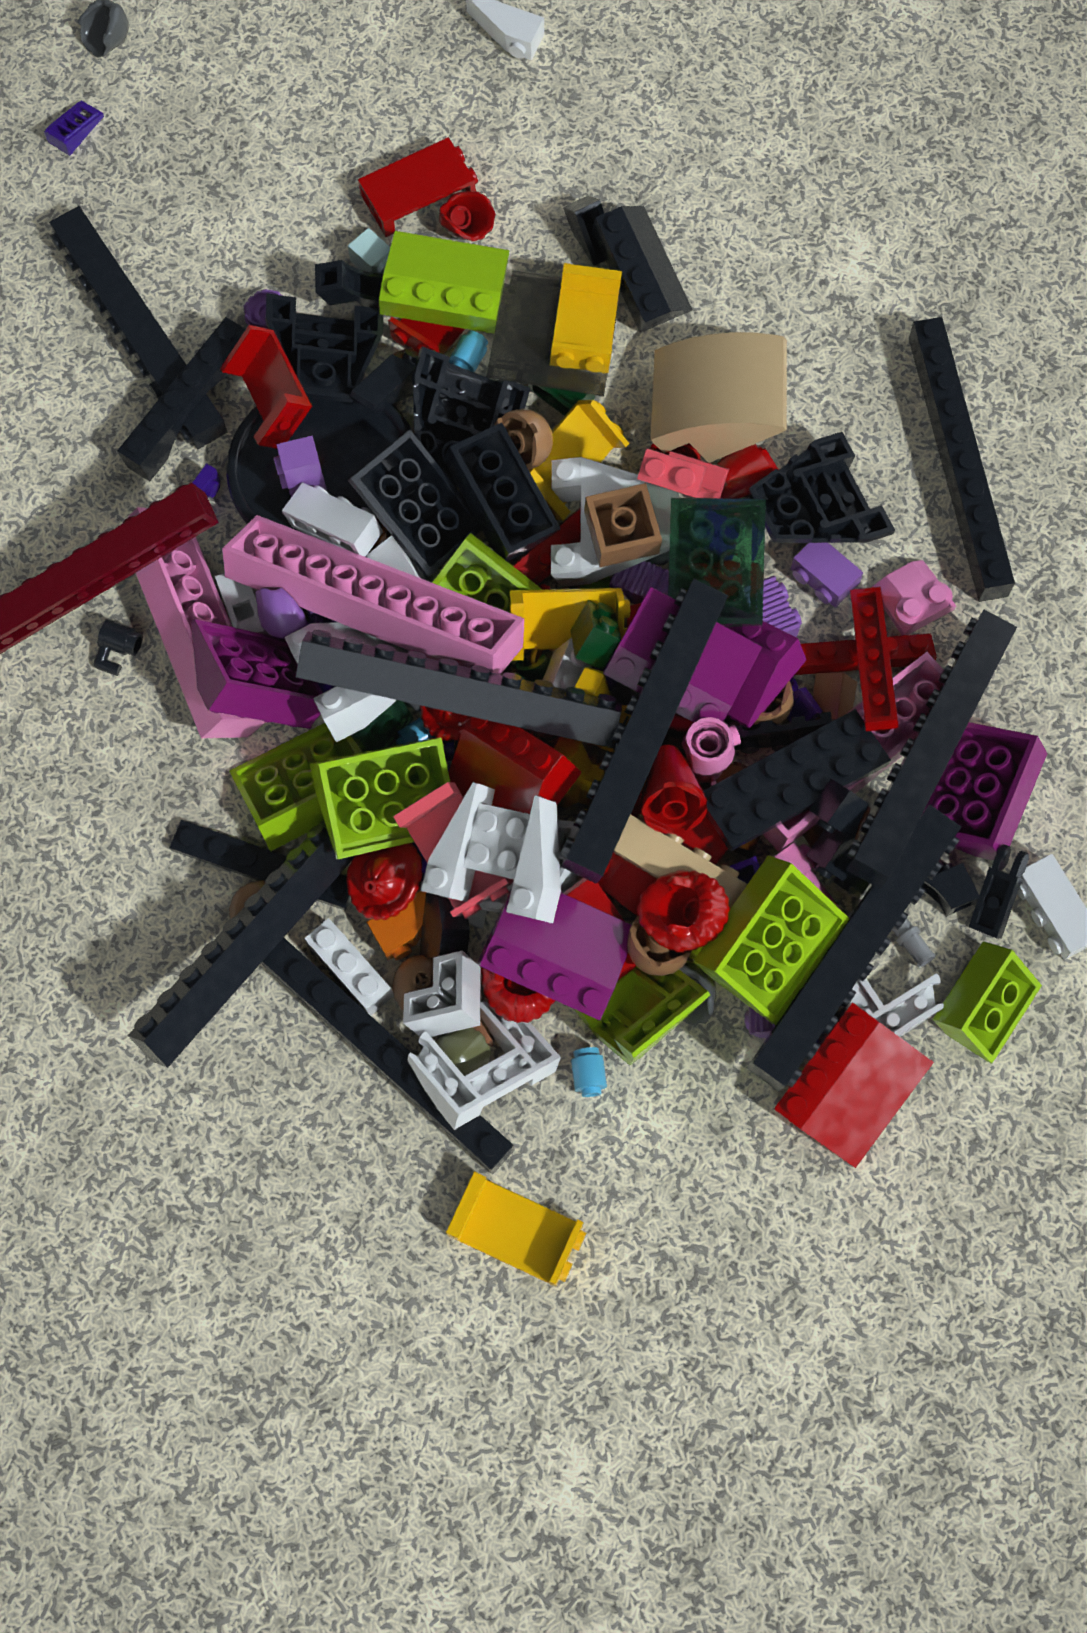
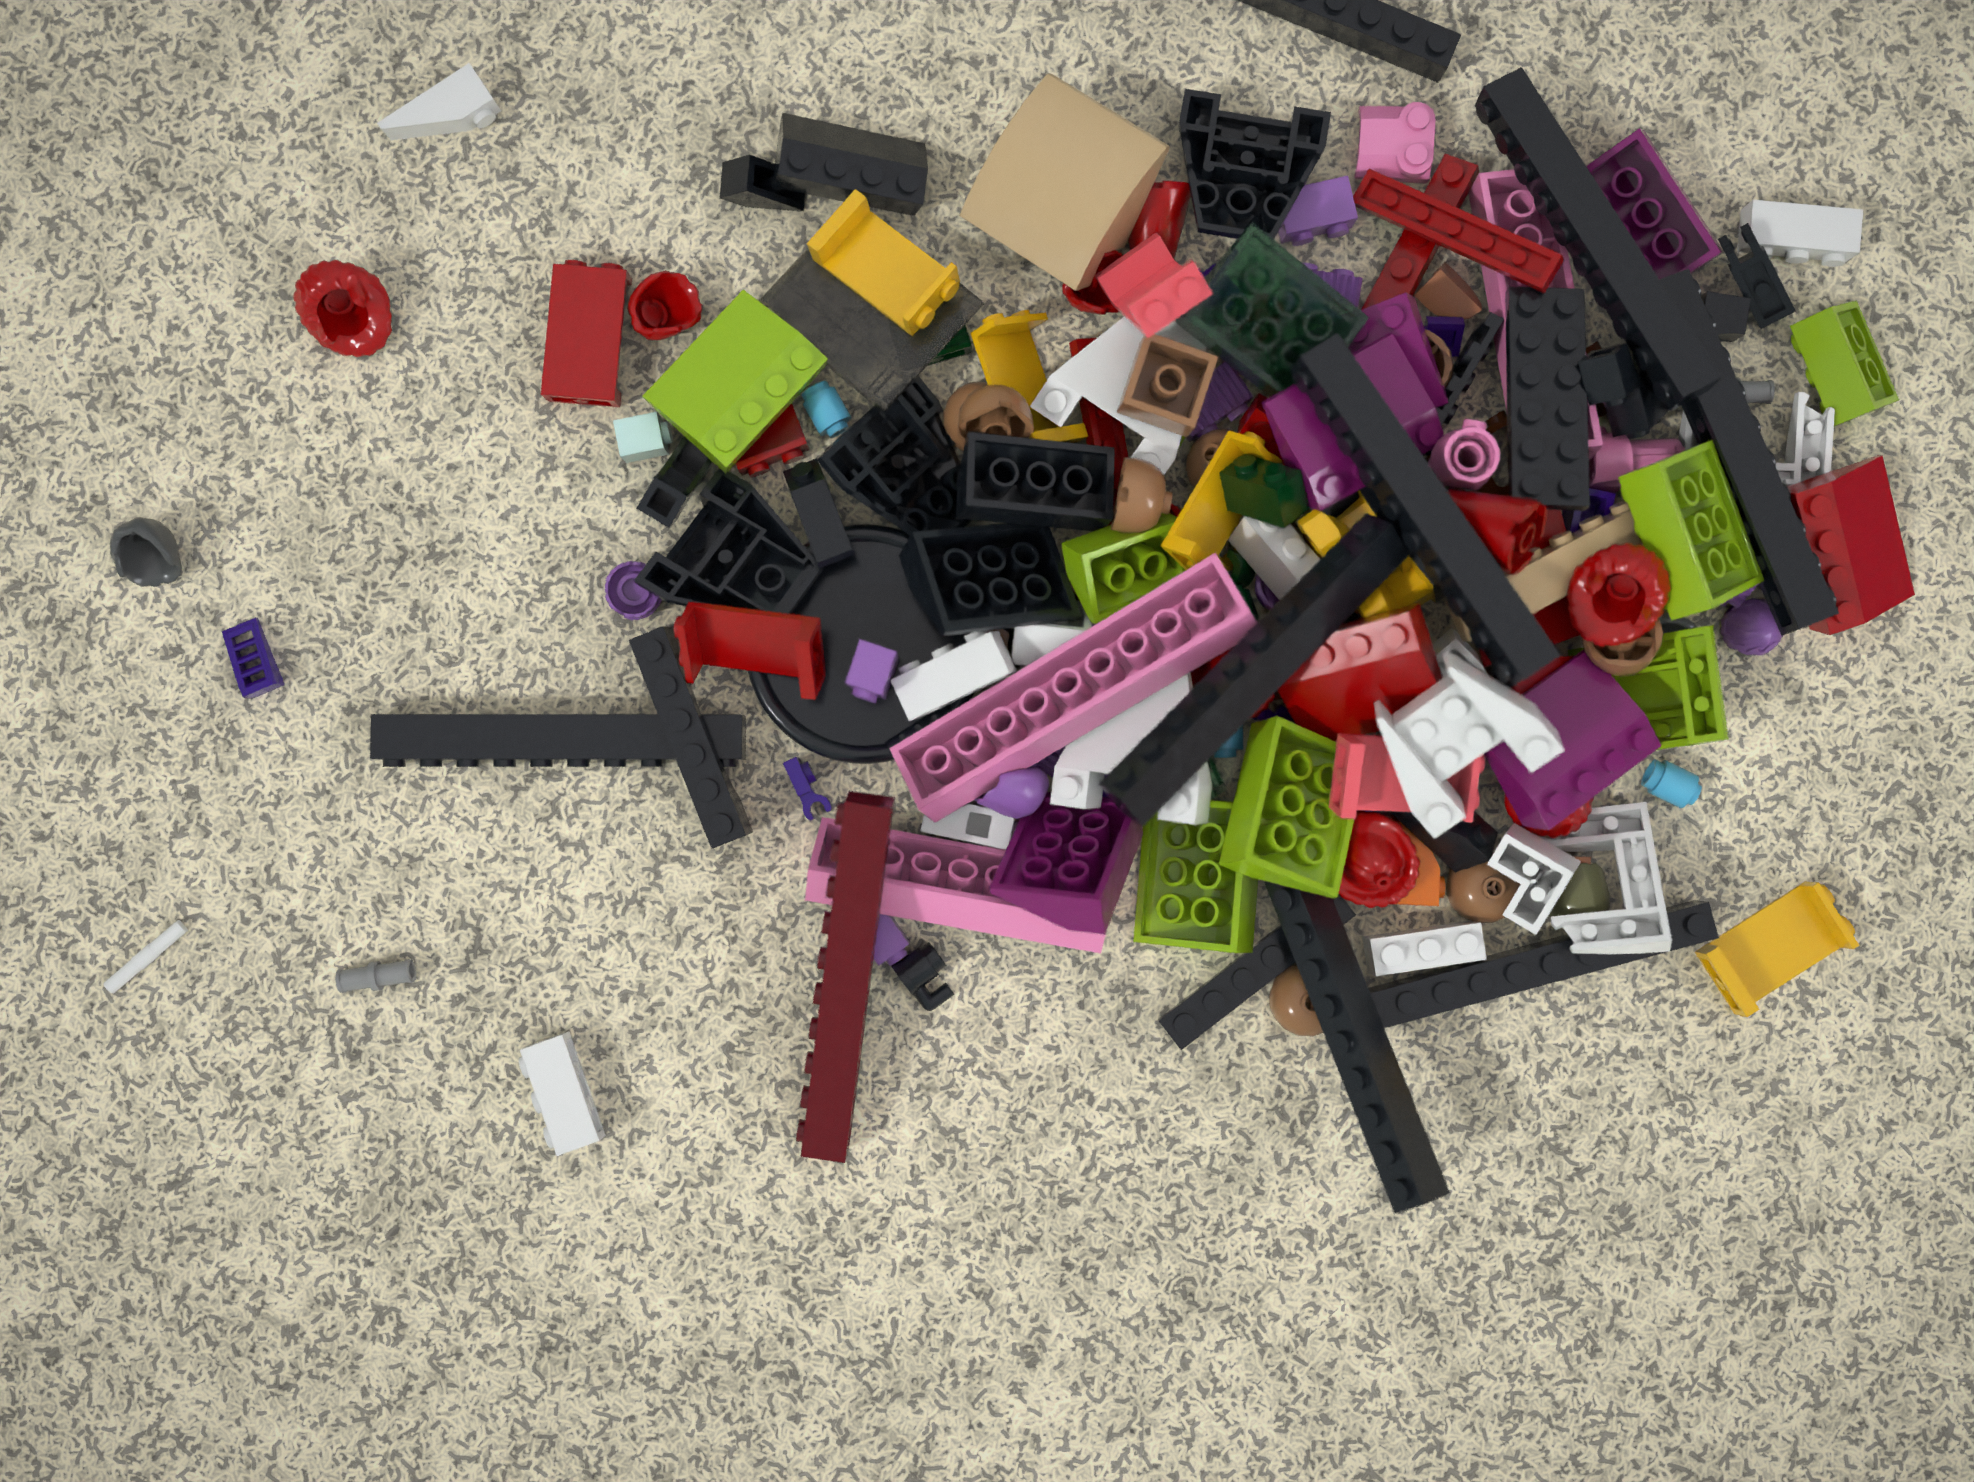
camera: 60 degrees left, 15 degrees up
(126, 602) = (890, 941): none -> medium lavender brick
(337, 42) = (344, 307): none -> red piece
(535, 558) = (1140, 497): none -> medium nougat cylinder
(736, 1057) = (1750, 628): none -> medium lavender hair

